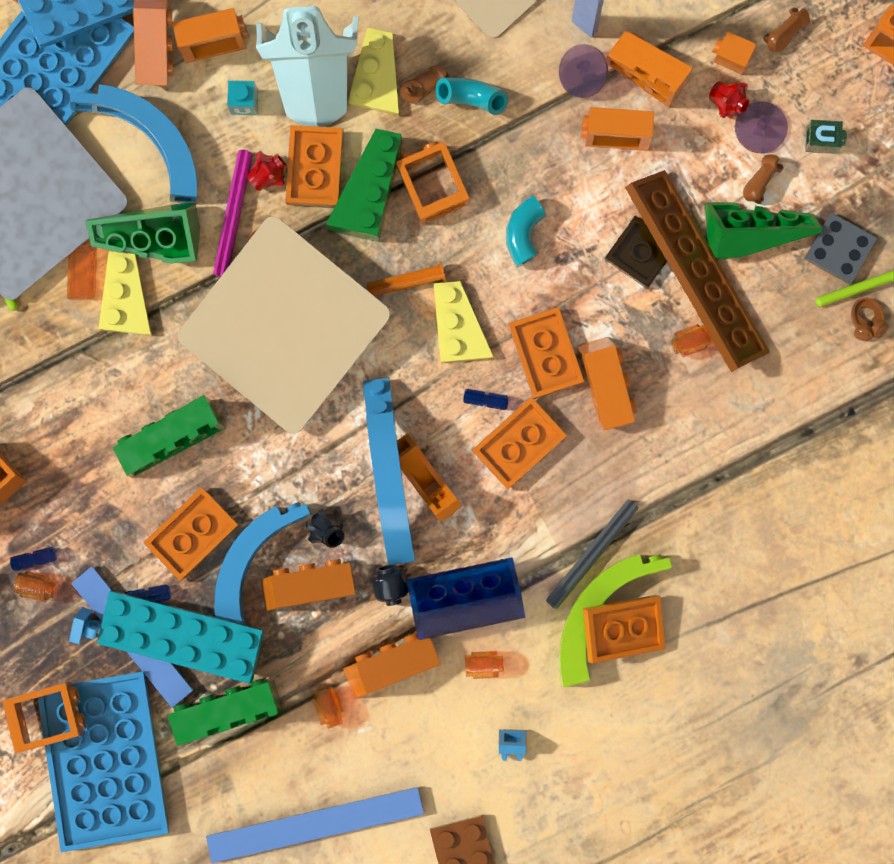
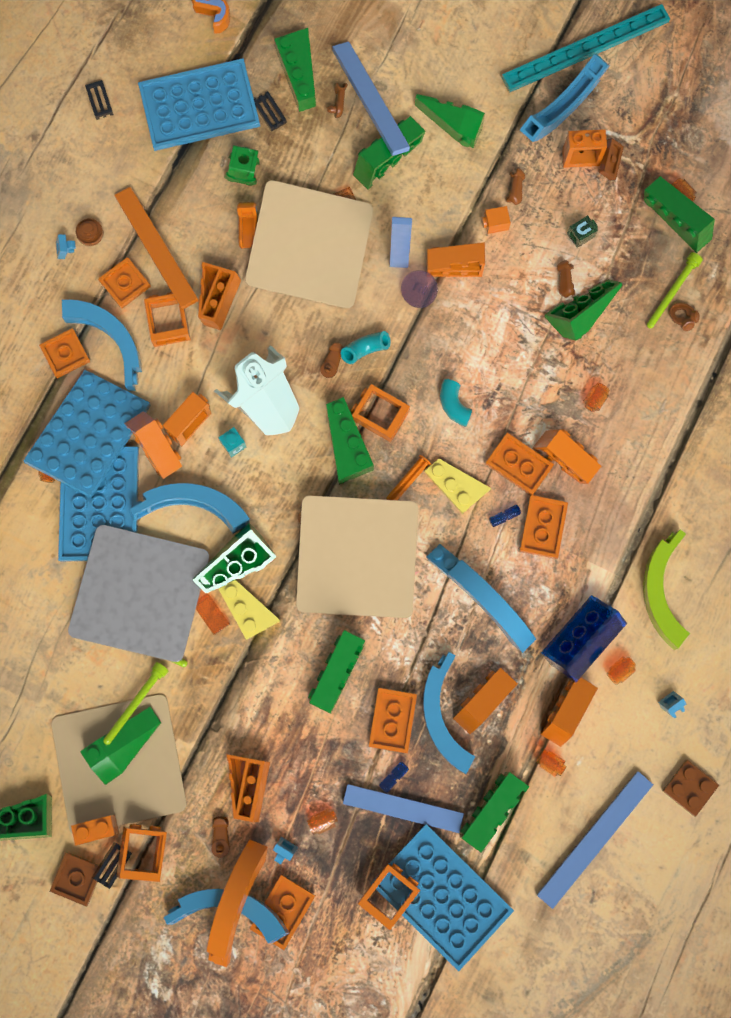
camera: 45 degrees left, 5 degrees down
(28, 560) = (311, 802): clear blue piece -> none
(84, 626) = (371, 823): dark azure tile -> none
(180, 636) = (434, 785): teal plate -> none
(233, 212) = (276, 514): dark pink axle -> none
(267, 171) = (279, 474): red rock -> none
(314, 166) = (304, 452): orange plate -> none
(326, 528) = (471, 658): black rock -> none
(375, 75) = (301, 375): light yellow wing -> none
(390, 584) = (532, 663): black head -> none
(426, 480) = (511, 588): orange arch -> none
(592, 554) = (633, 560): dark grey axle -> none
(618, 128) = (465, 306): orange window -> none
(624, 628) = (686, 589): orange plate -> none
(637, 253) = (529, 369): dark brown tile -> none
(697, 270) = (570, 355): dark orange plate -> none
(729, 98) = (514, 246): red rock -> none
(761, 127) = (542, 251): clear purple piece -> none
(840, 248) = (638, 287): dark grey tile -> none

